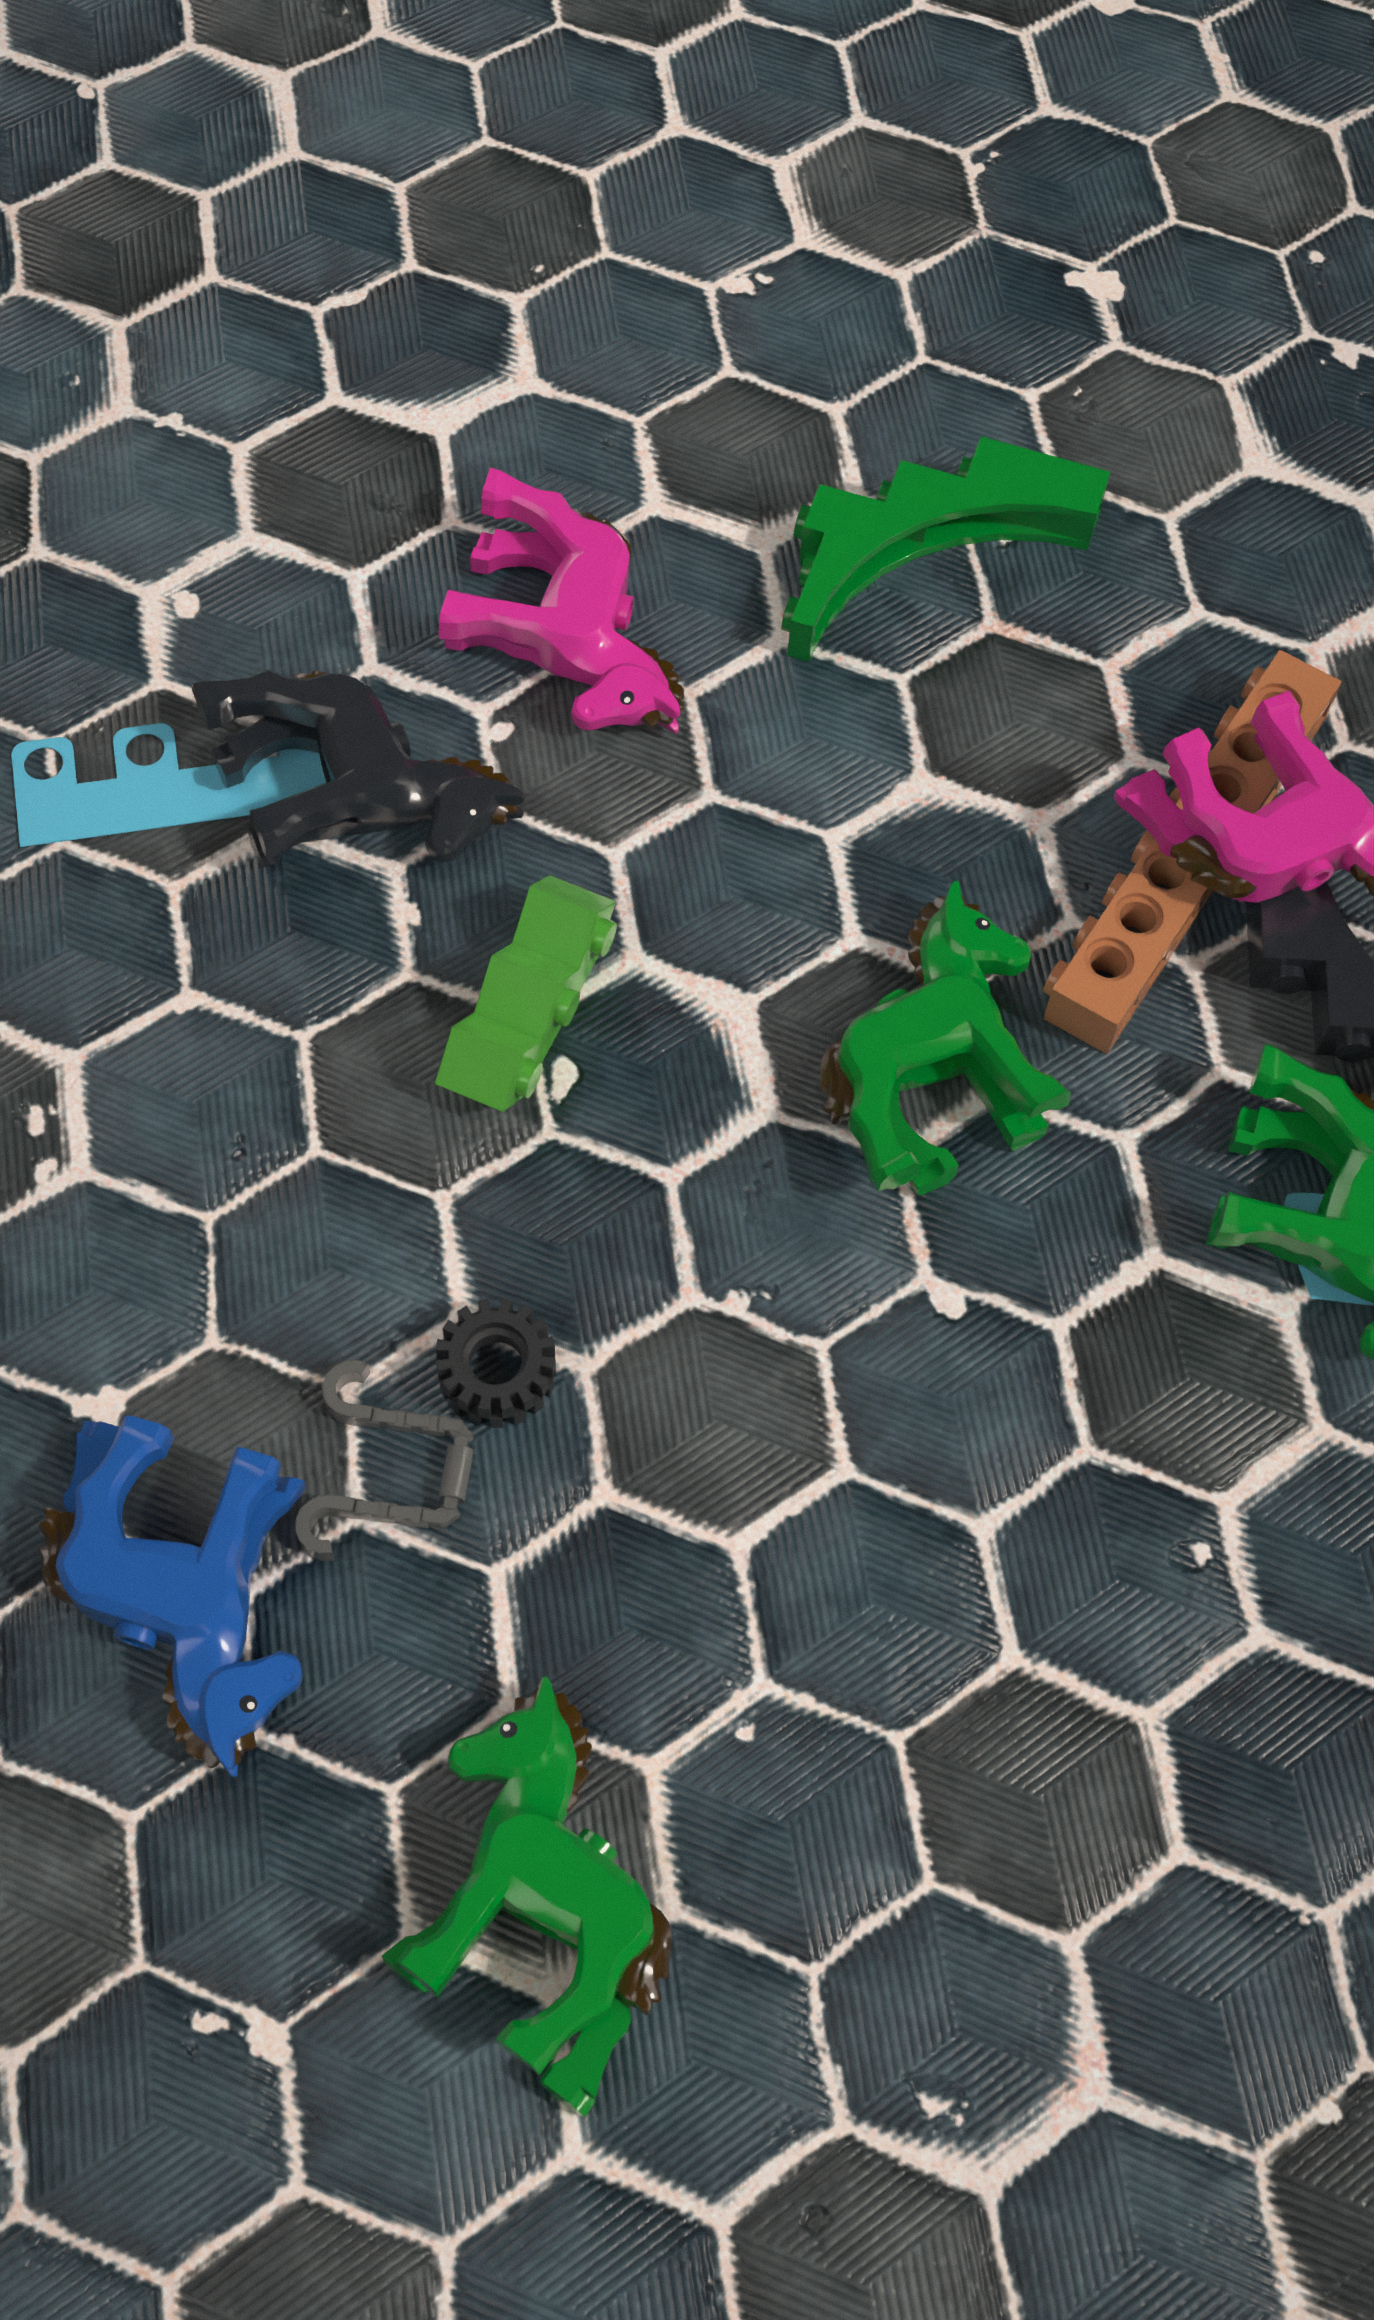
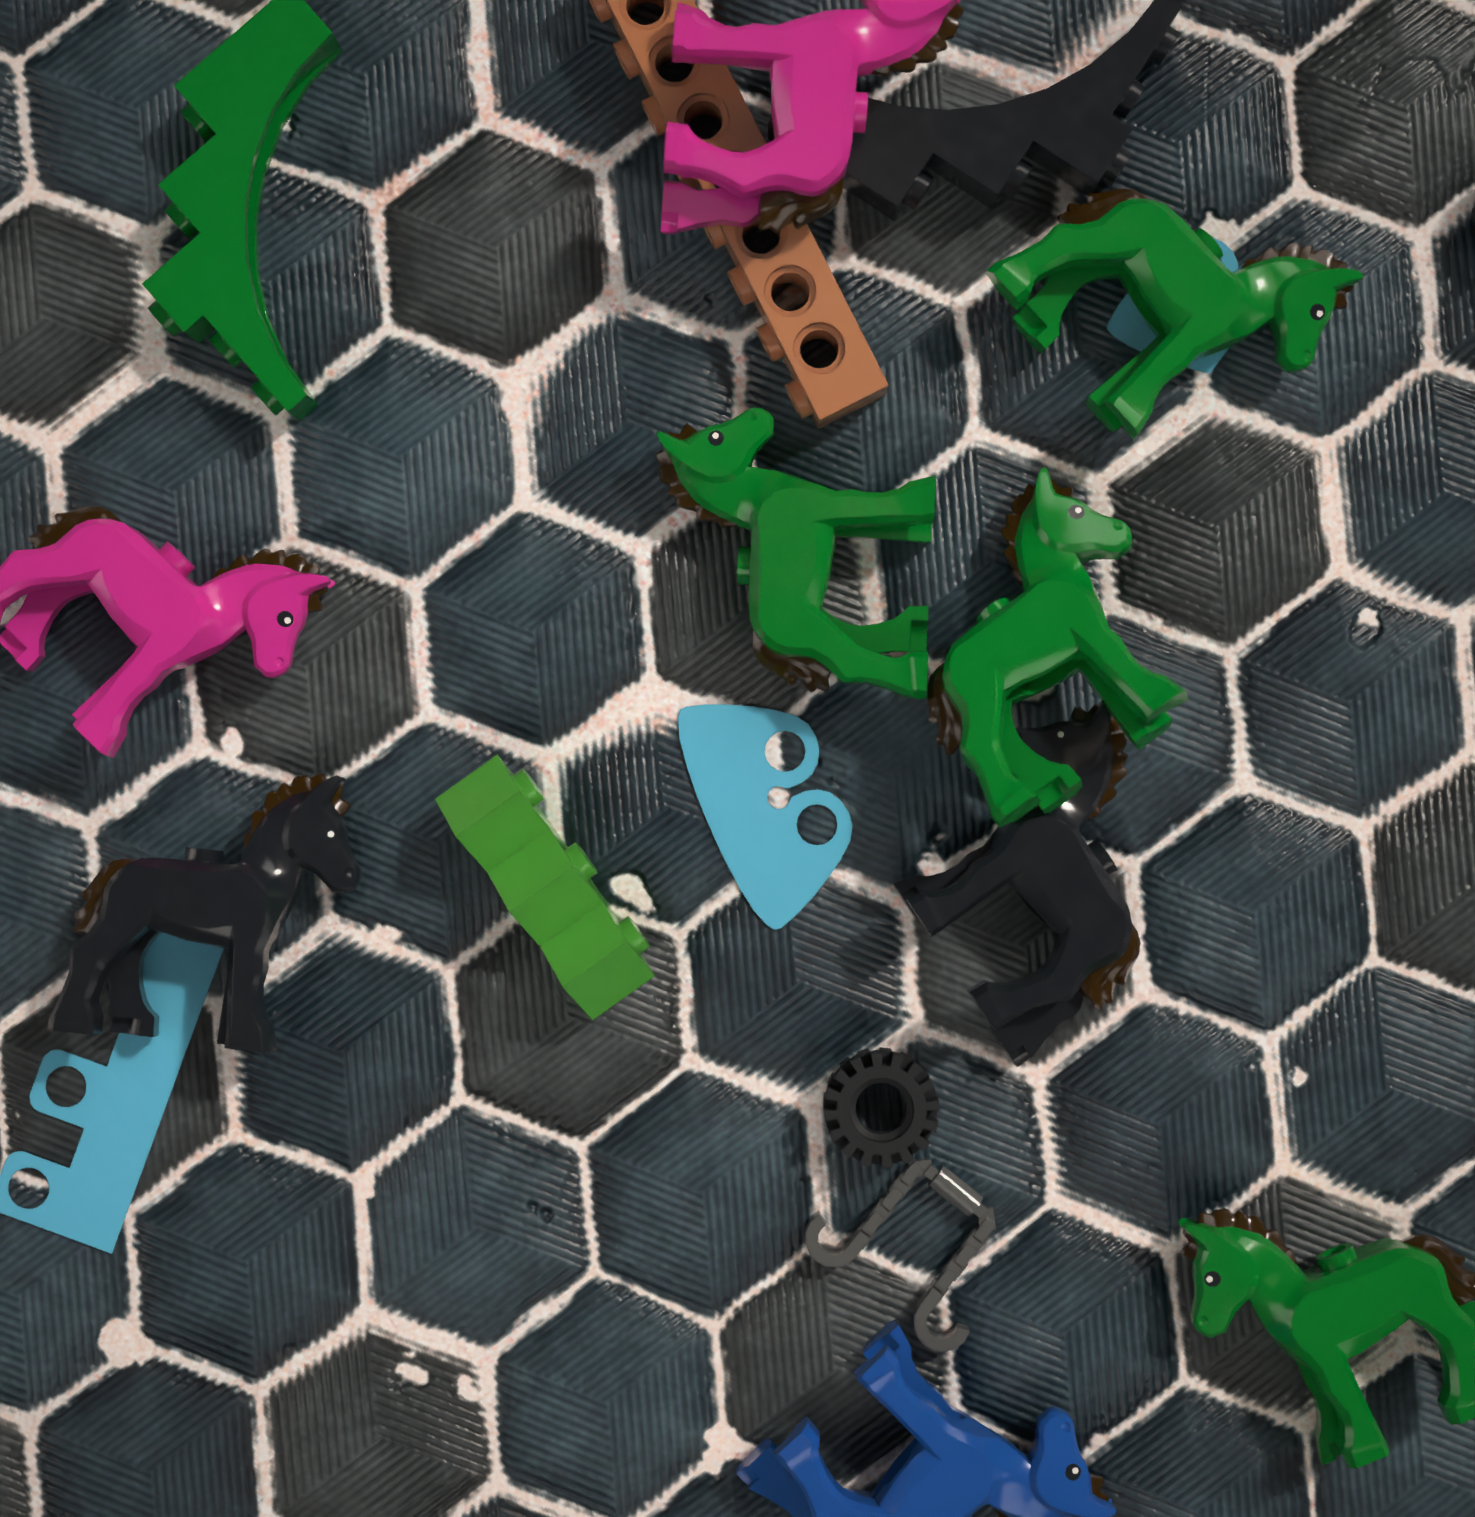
camera: 55 degrees left, 25 degrees up
(669, 1151) = (732, 783): none -> medium azure piece
(796, 1392) = (1057, 880): none -> black animal
(984, 1250) = (1037, 644): none -> green animal

